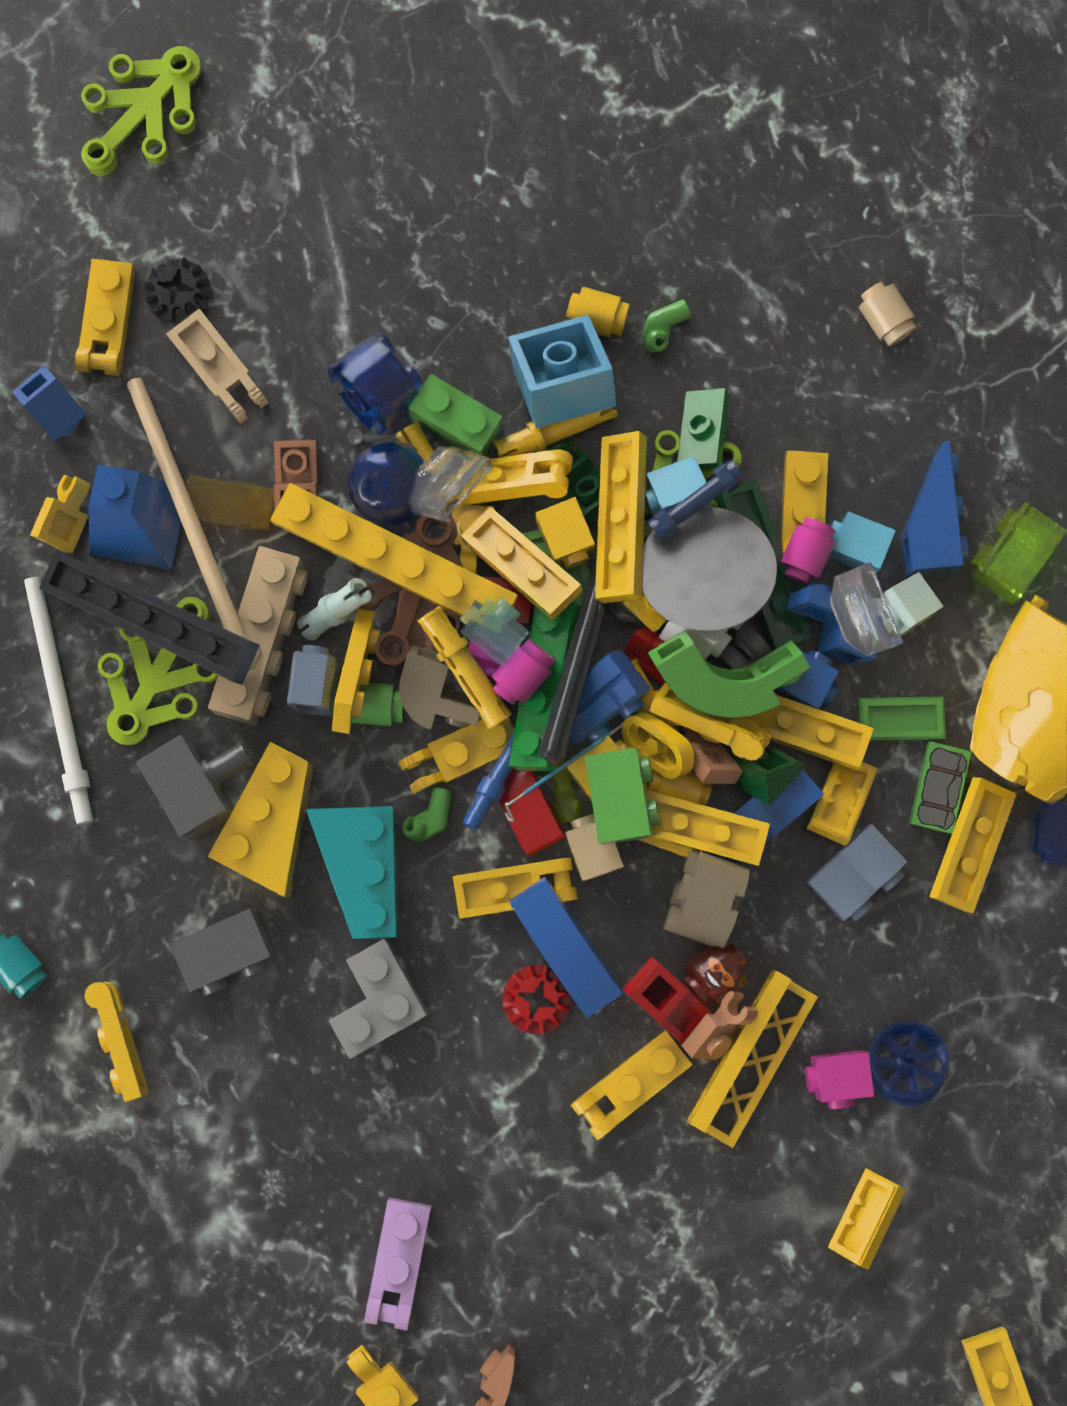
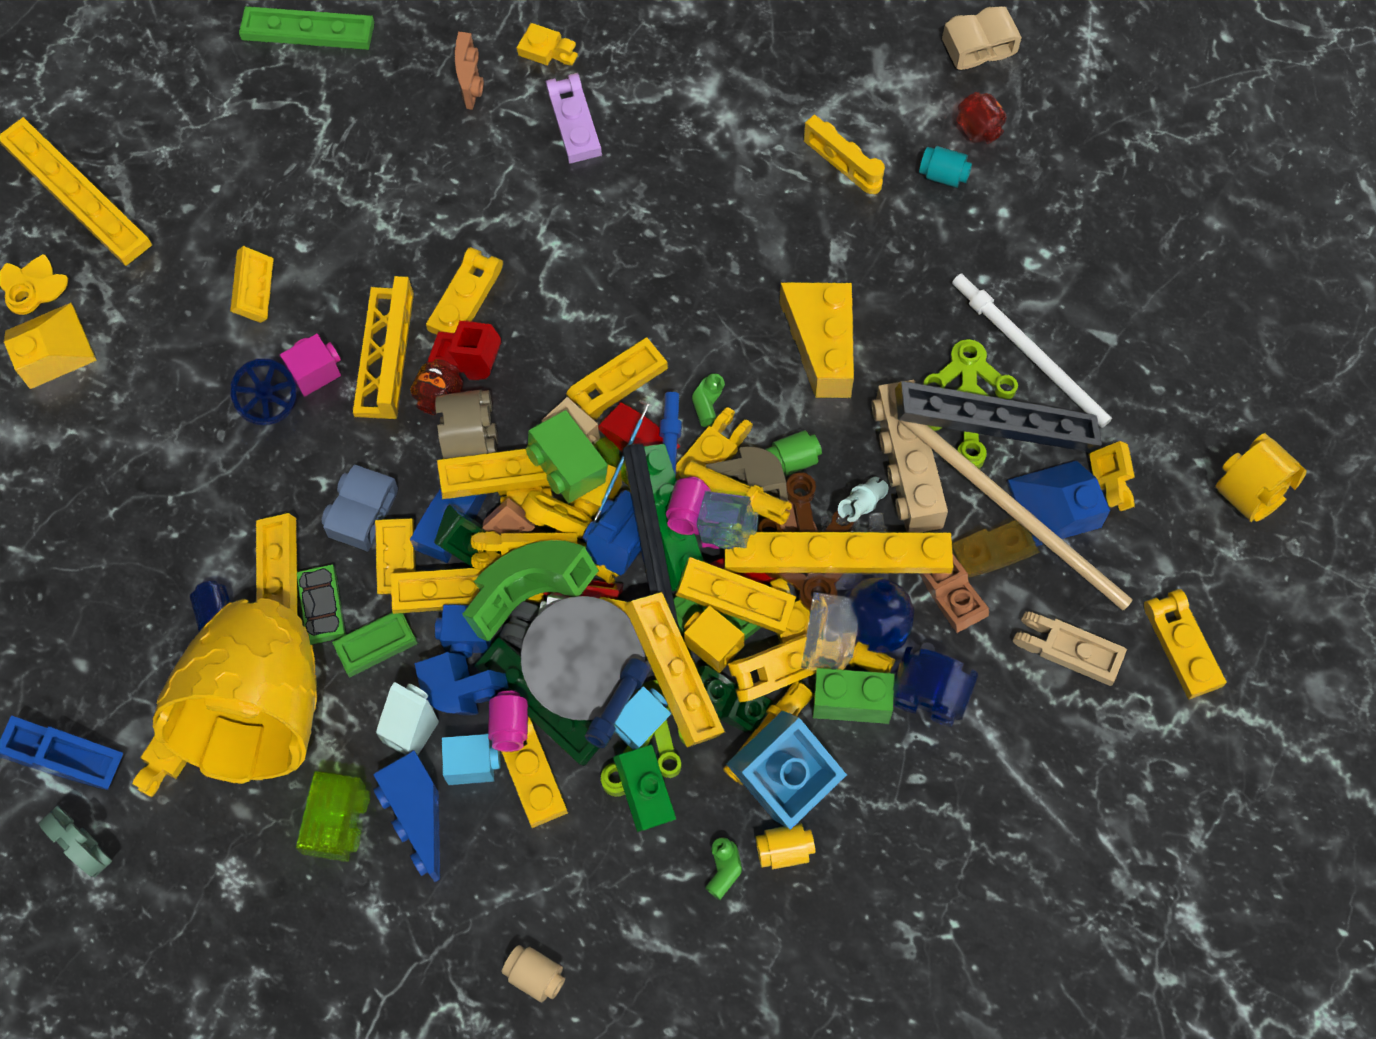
camera: 155 degrees right, 15 degrees down
(49, 403) = (1180, 545): blue brick -> none
(143, 104) = (1271, 837): lime plant -> none
(186, 303) = (1135, 709): black gear -> none
(192, 786) = (893, 324): dark grey brick -> none
(223, 951) = (804, 237): dark grey brick -> none
(313, 681) = (846, 436): sand blue brick -> none
(355, 672) = (818, 454): yellow plate -> none
(362, 865) = (739, 338): teal wedge -> none
(390, 1000) = (670, 260): light grey brick -> none
(517, 1008) = (575, 324): red gear -> none
(566, 947) = (556, 352): blue slope -> none
(716, 1031) = (417, 345): nougat plate -> none
(863, 611) = (440, 684): clear slope -> none

